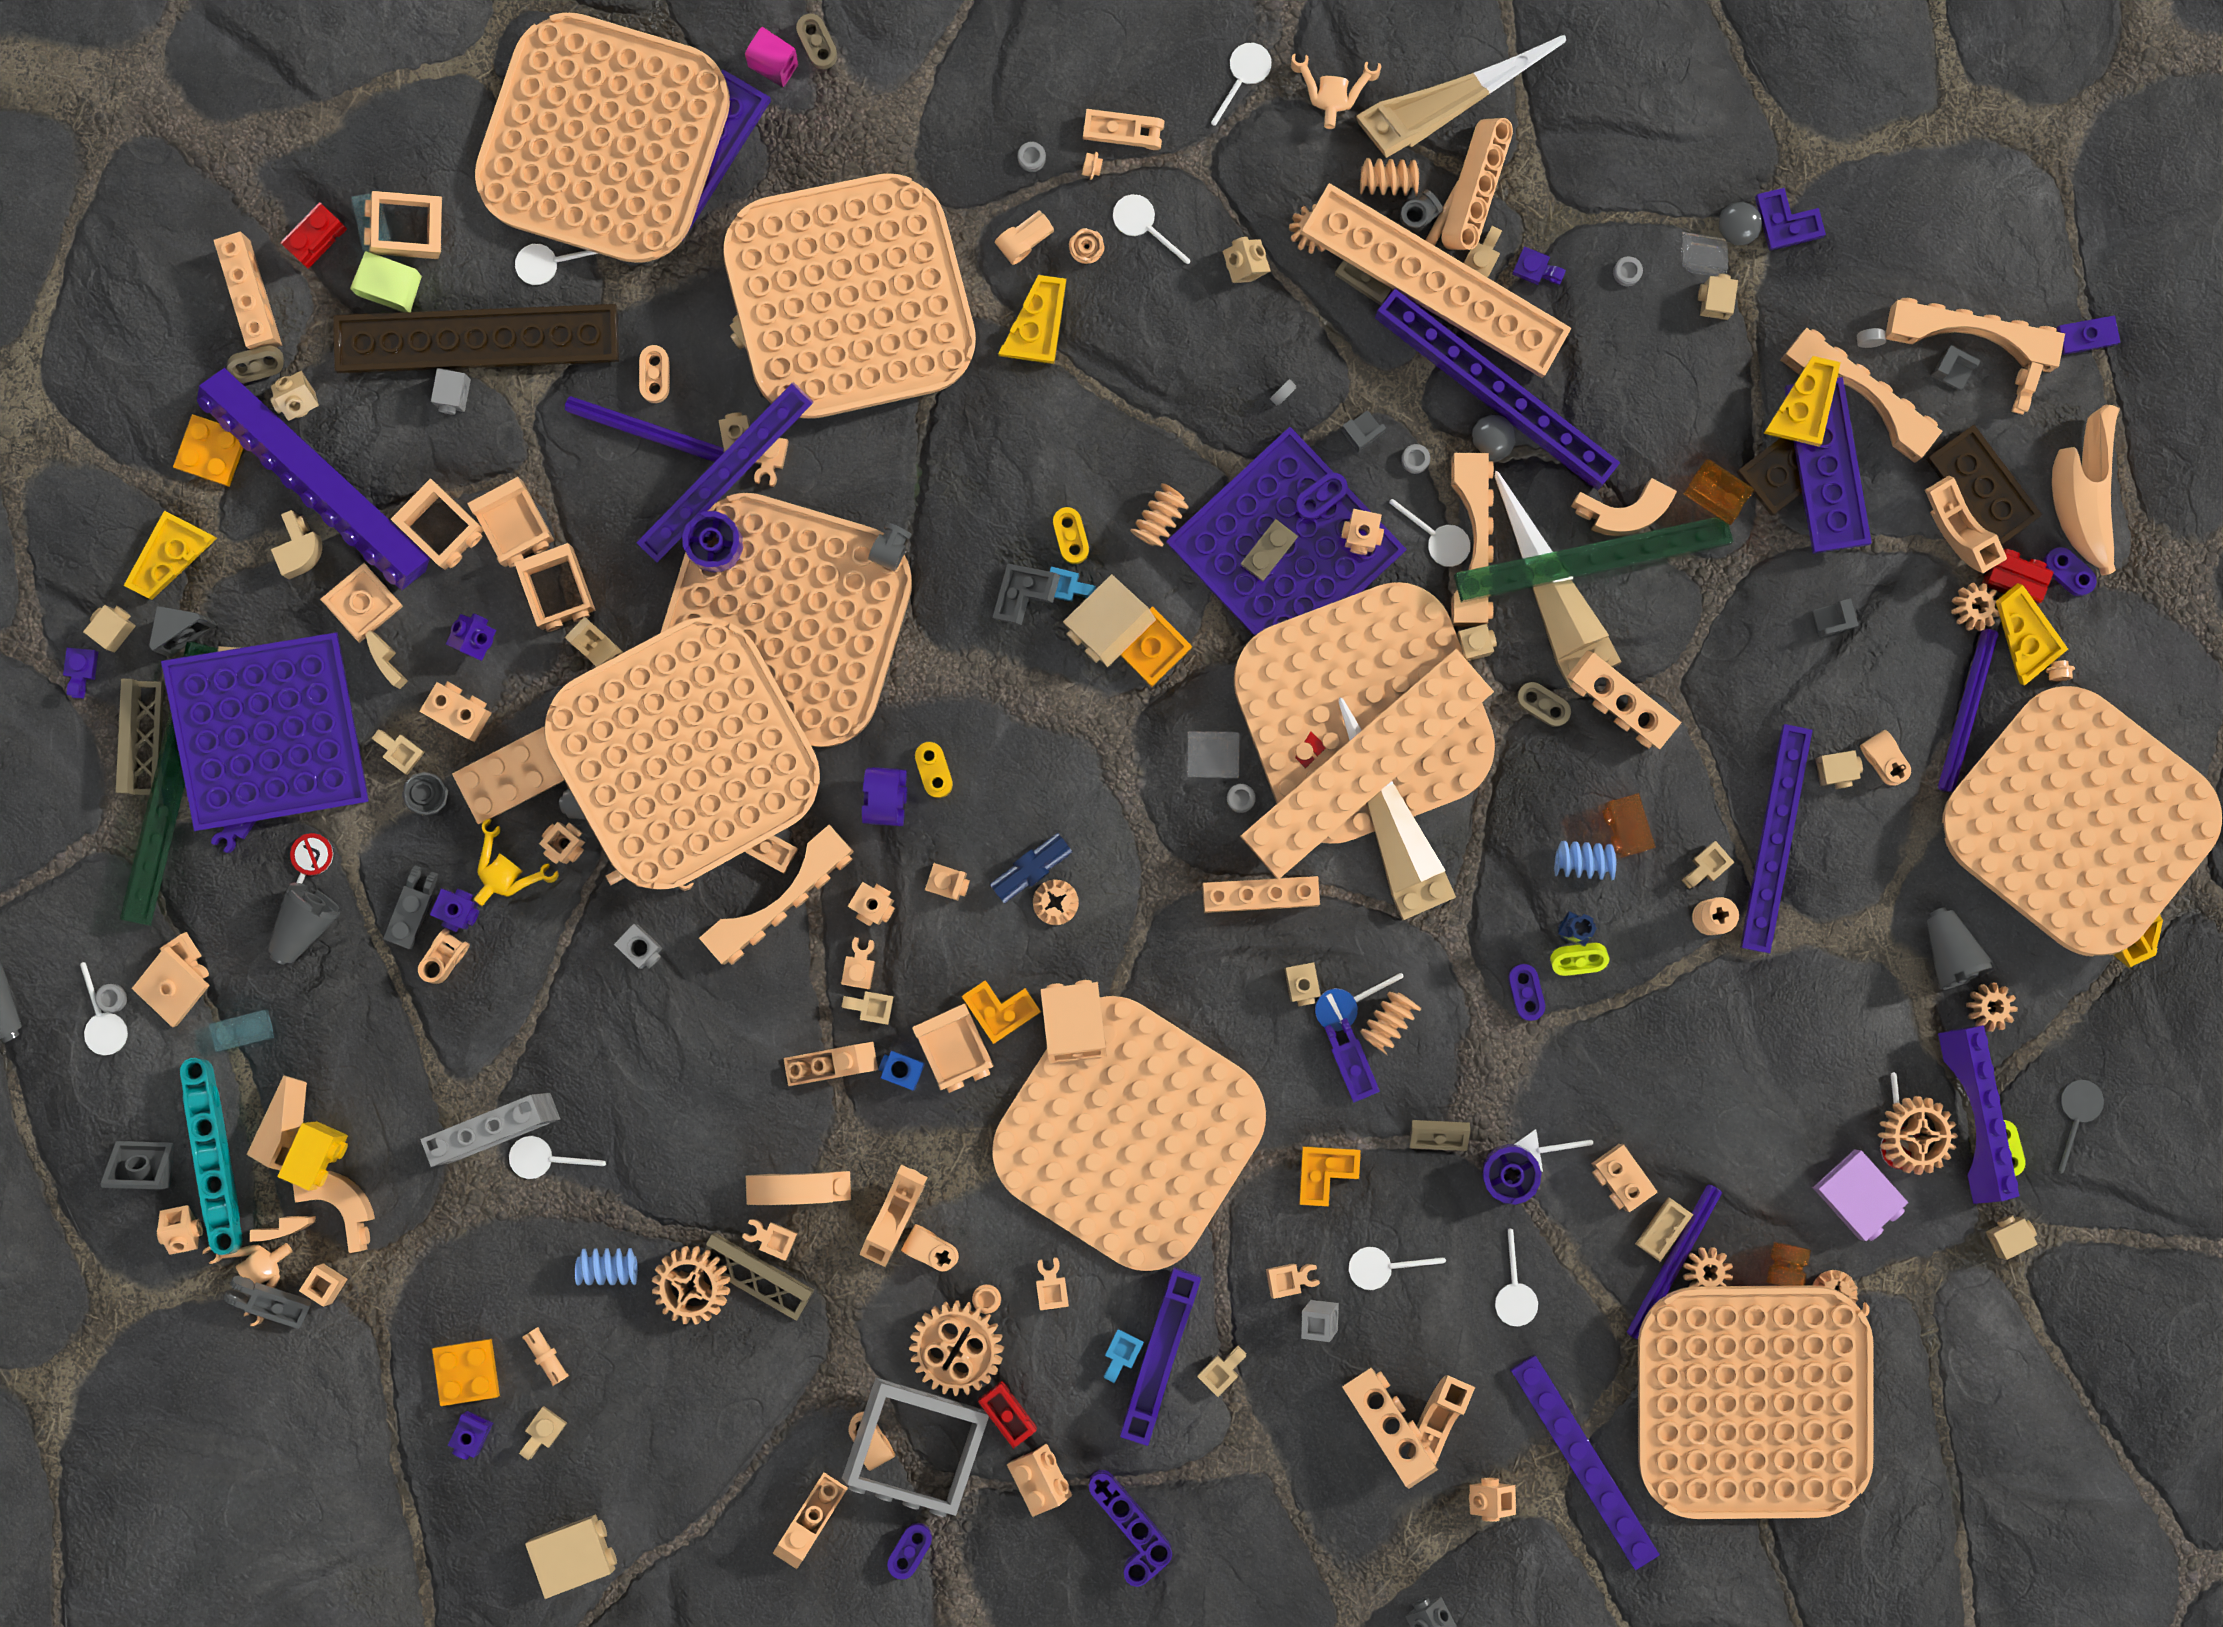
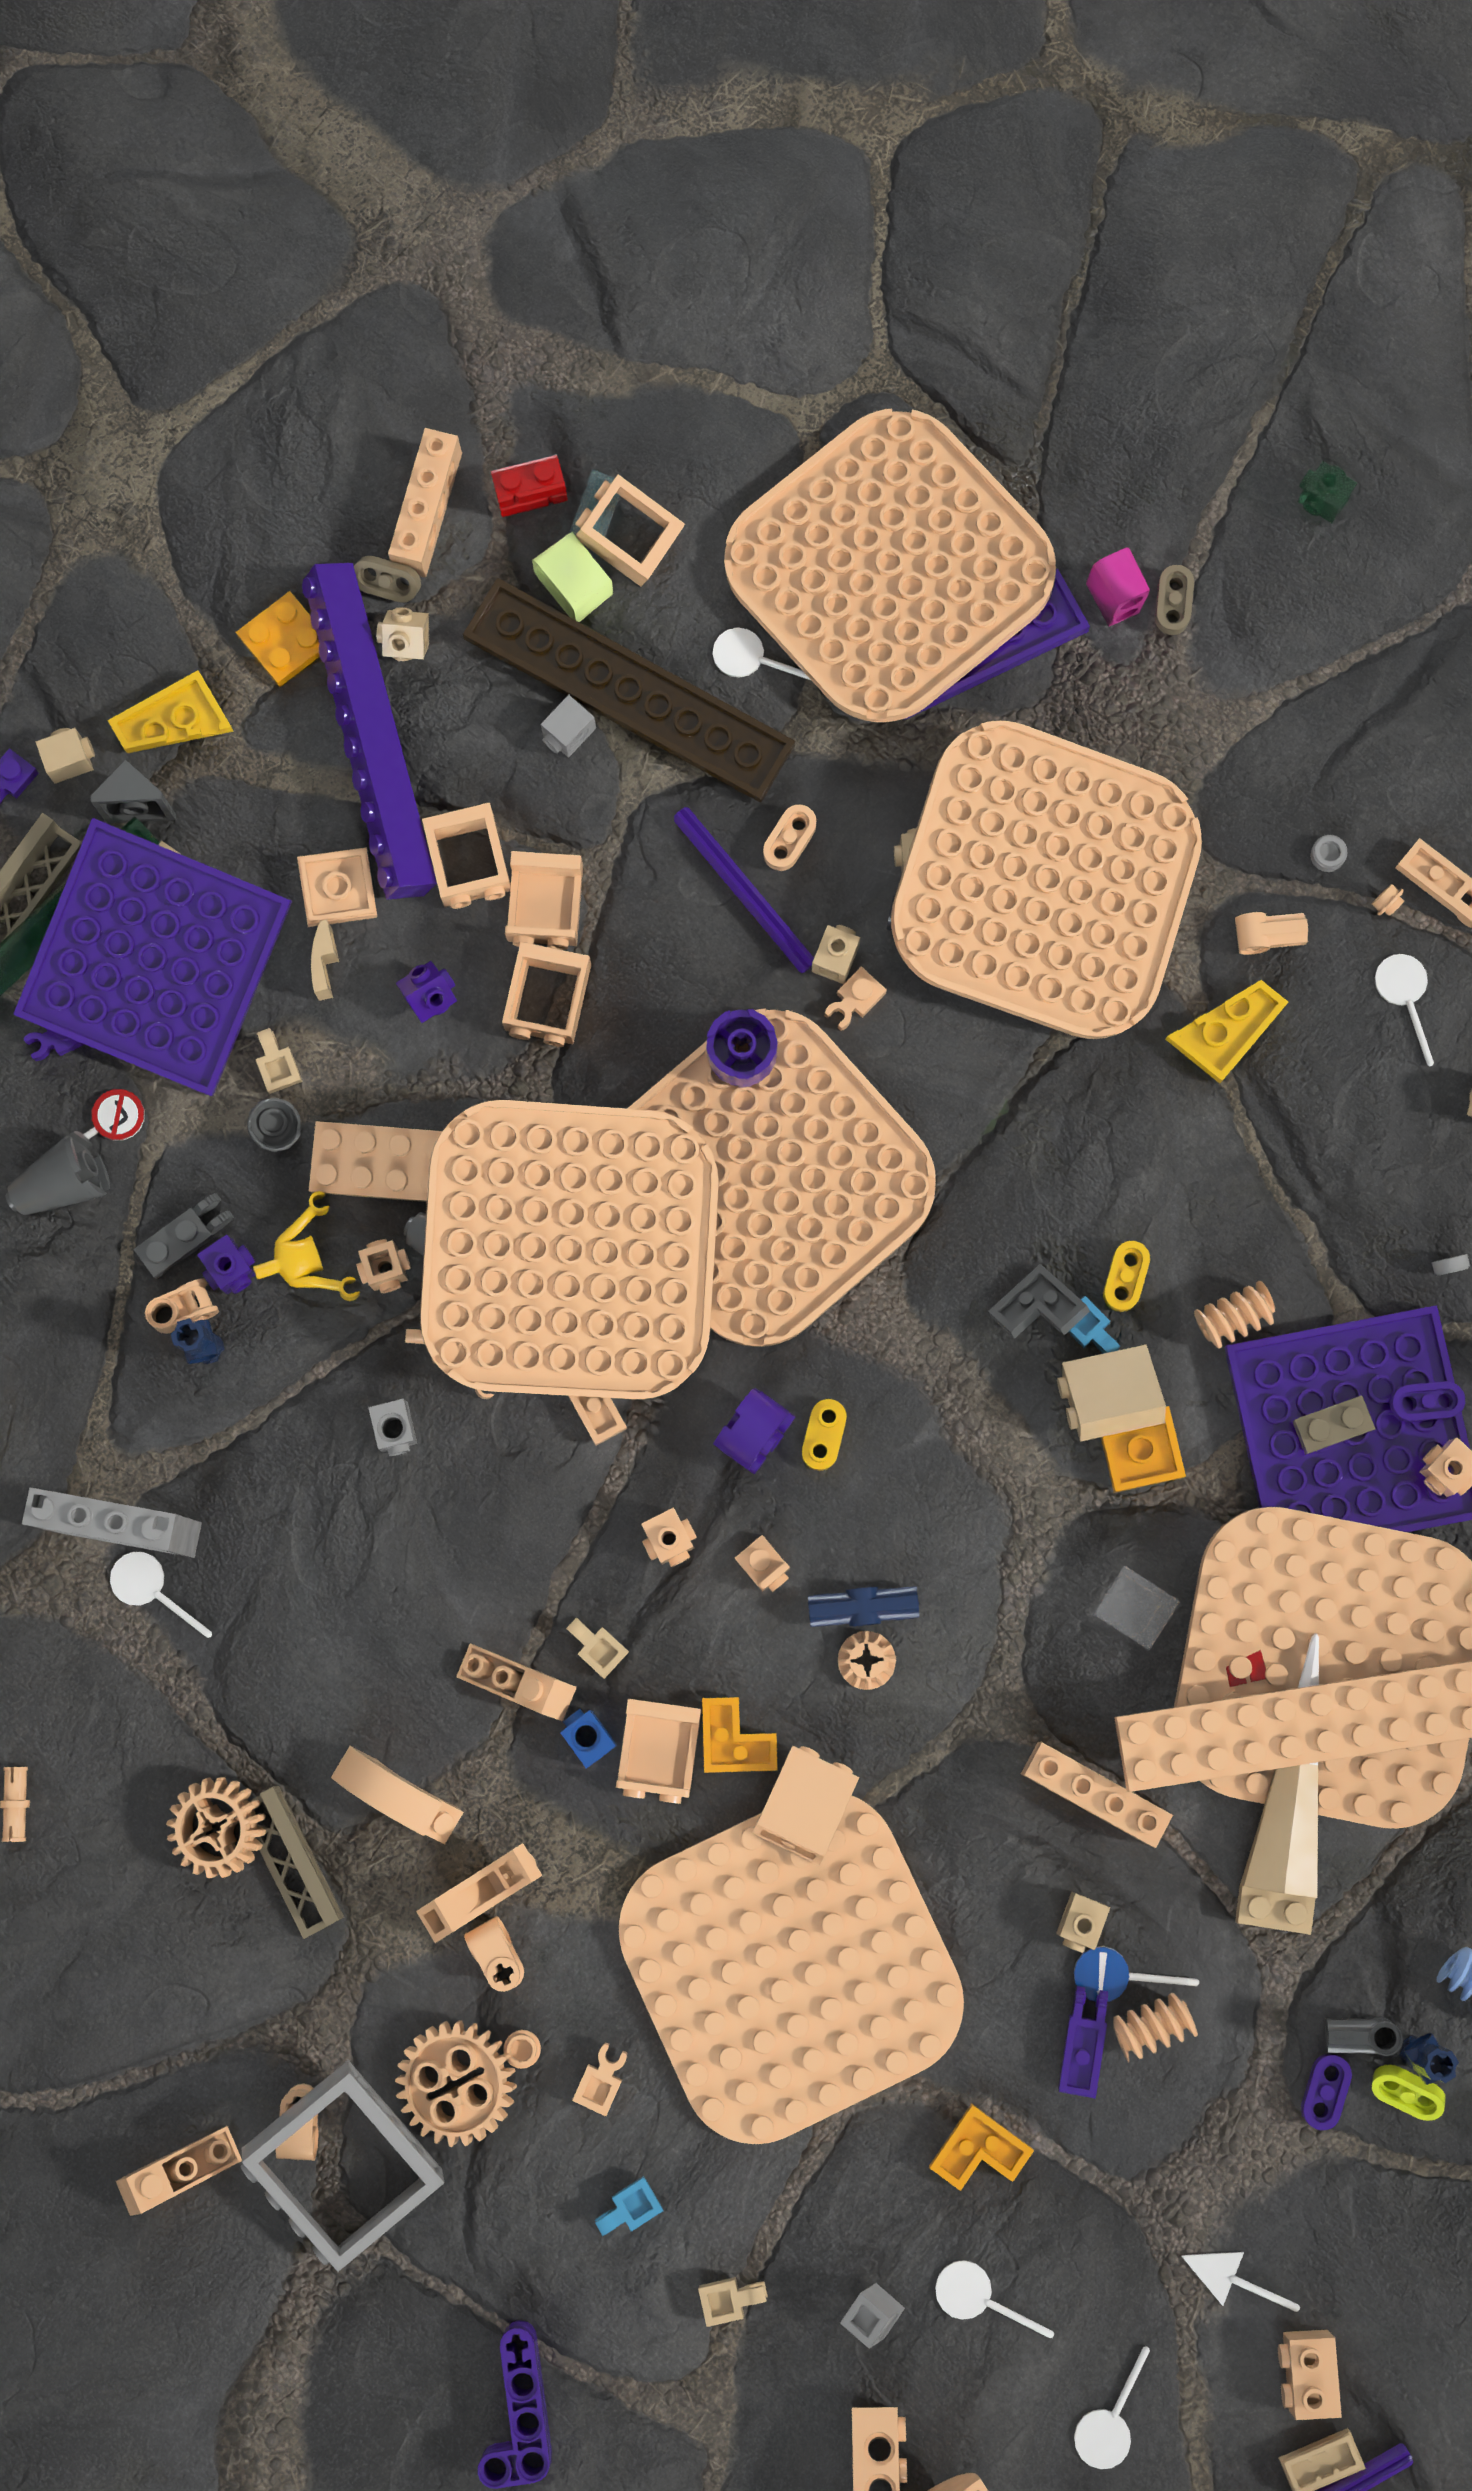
camera: 35 degrees right, 5 degrees down
(300, 553) = (311, 797): tan brick -> none
(456, 711) = (361, 1058): light nougat brick -> none
(468, 972) = (197, 1341): none -> dark blue piece
(593, 643) = (548, 1075): tan brick -> none
(606, 1267) = (139, 1750): light blue piece -> none
(725, 471) = (803, 981): dark purple plate -> none
(732, 935) = (648, 1452): light nougat arch -> none
(775, 1239) = (337, 1835): light nougat plate -> none
(857, 969) = (609, 1598): light nougat plate -> none
(889, 547) = (925, 1168): dark grey piece -> none
(910, 1550) = (265, 2277): dark purple plate -> none
(1007, 1414) = (465, 2195): red brick -> none
(1040, 1480) = (454, 2291): light nougat bracket -> none
(1086, 237) = (1333, 970): light nougat plate -> none
(1160, 1356) = (670, 2238): dark purple arch -> none
(1241, 798) = (1137, 1674): light grey tile -> none
(1287, 1280) = (863, 2244): light nougat plate -> none
(1439, 1135) = (1132, 2191): dark tan plate -> none
(1505, 1189) = (1204, 2305): dark purple brick -> none
(1525, 943) = (1358, 2036): none -> dark grey piece

